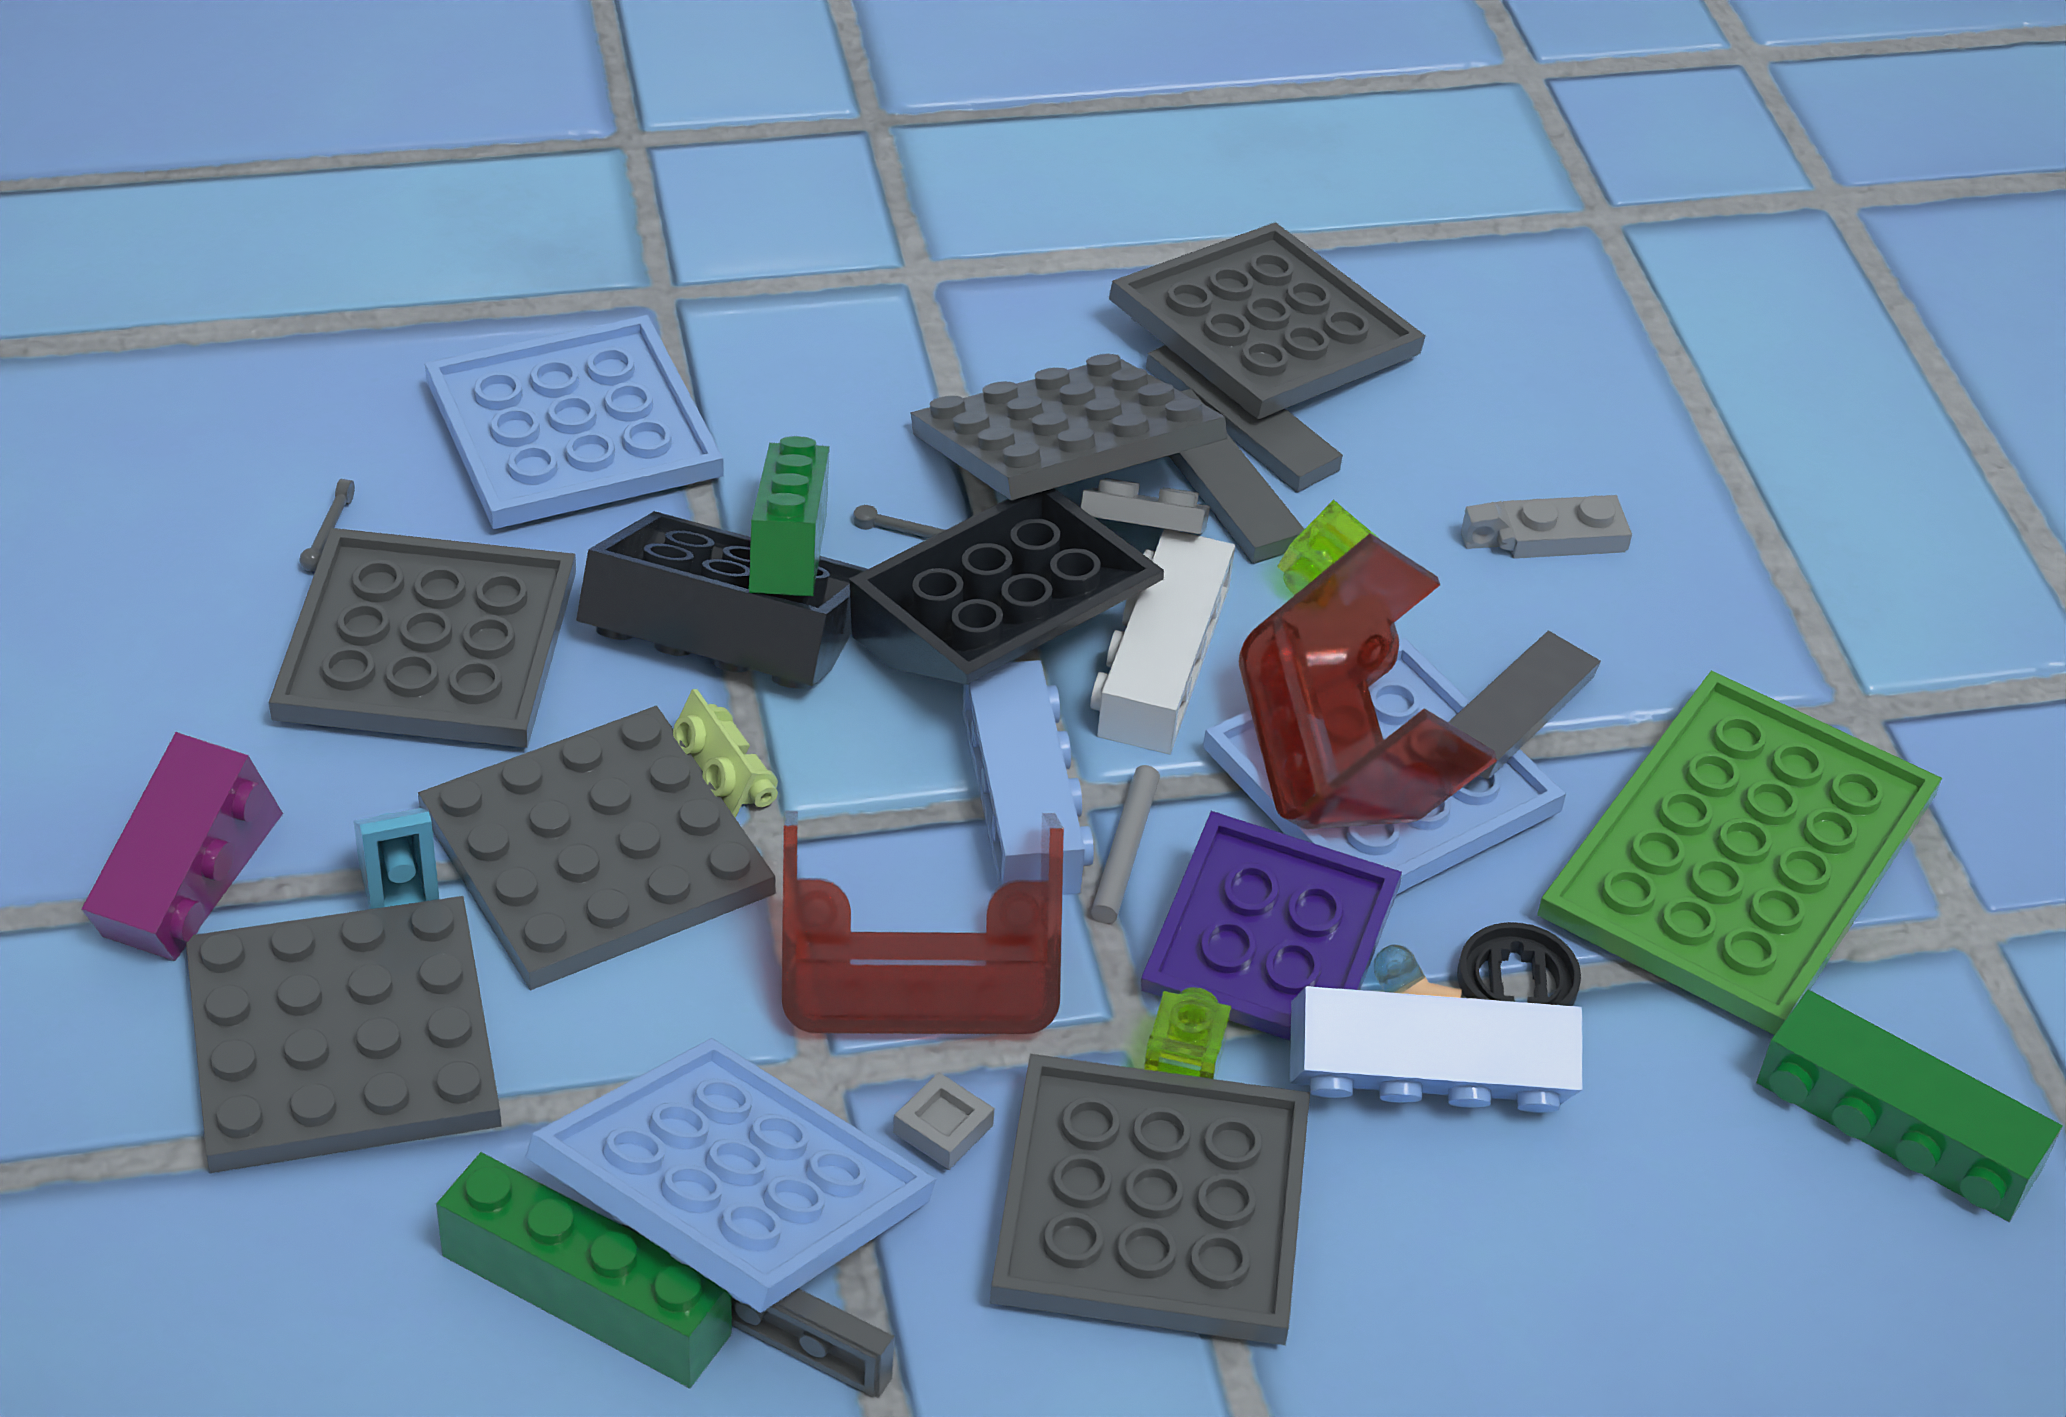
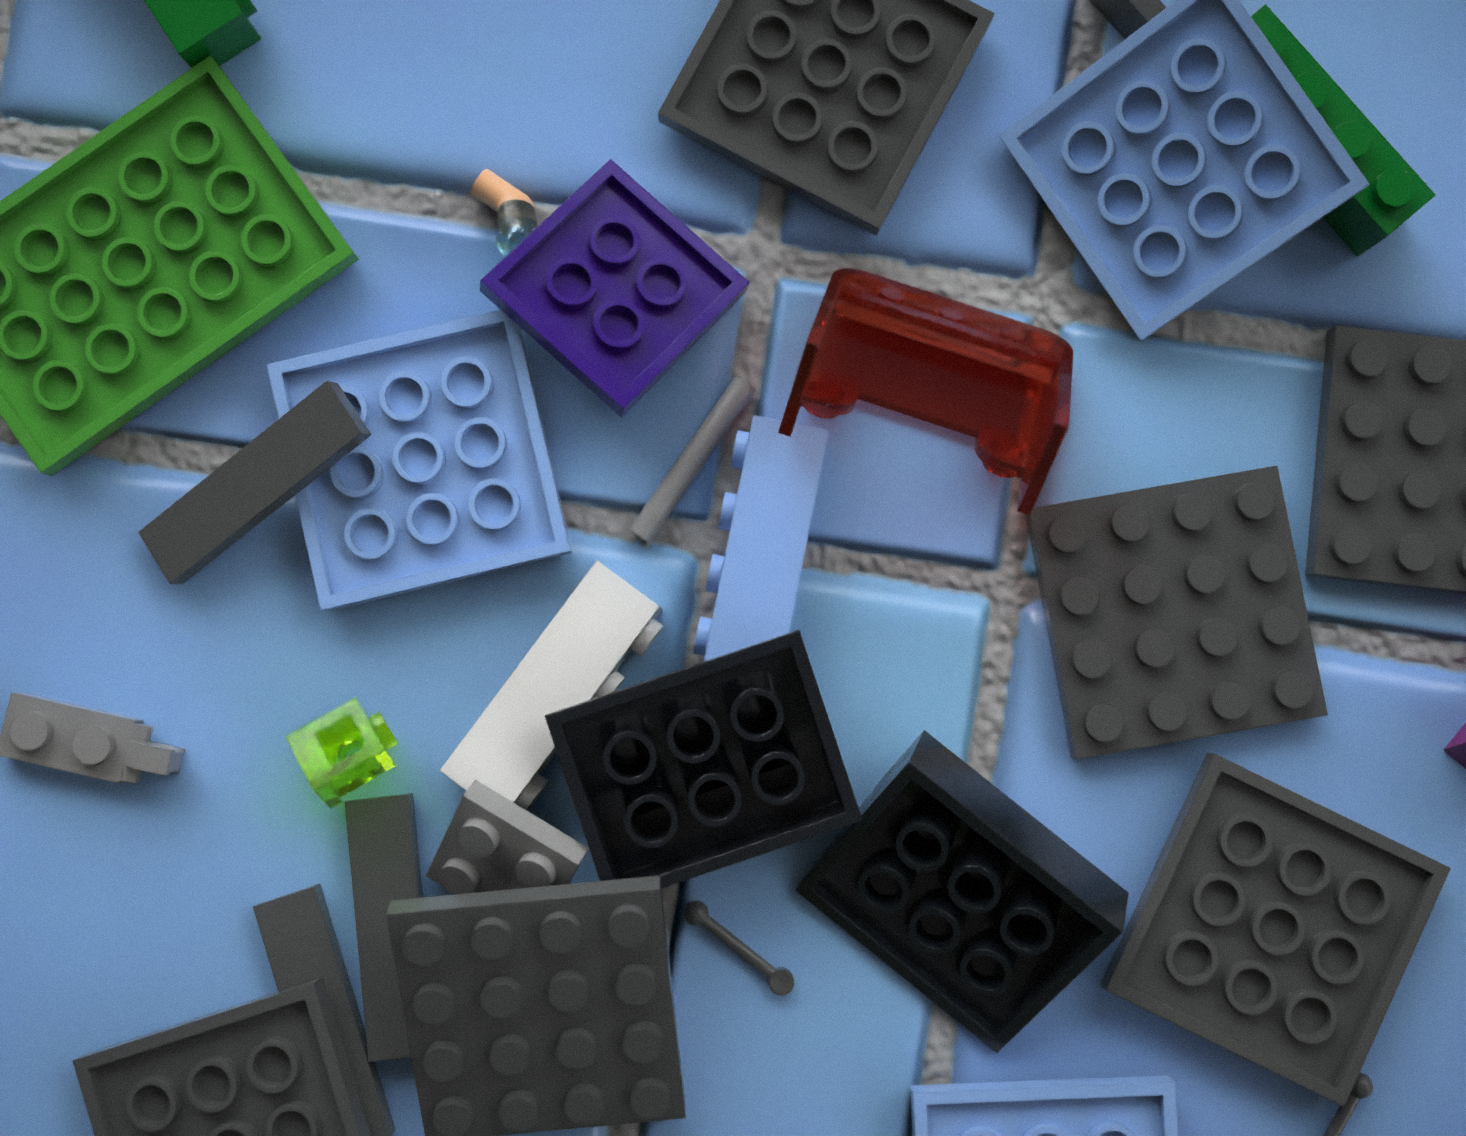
camera: 155 degrees left, 40 degrees up
(397, 858) = (1378, 620): medium azure slope -> none
(722, 755) = (1039, 697): yellowish green hinge -> none
(789, 518) = (894, 931): green brick -> none
(943, 1120) = (971, 195): light grey plate -> none
(1188, 1030) = (751, 183): clear neon green brick -> none
(1313, 706) = (464, 489): clear red windscreen -> none
(1435, 1047) = (533, 107): light blue brick -> none
(1535, 947) = (402, 160): black piece -> none

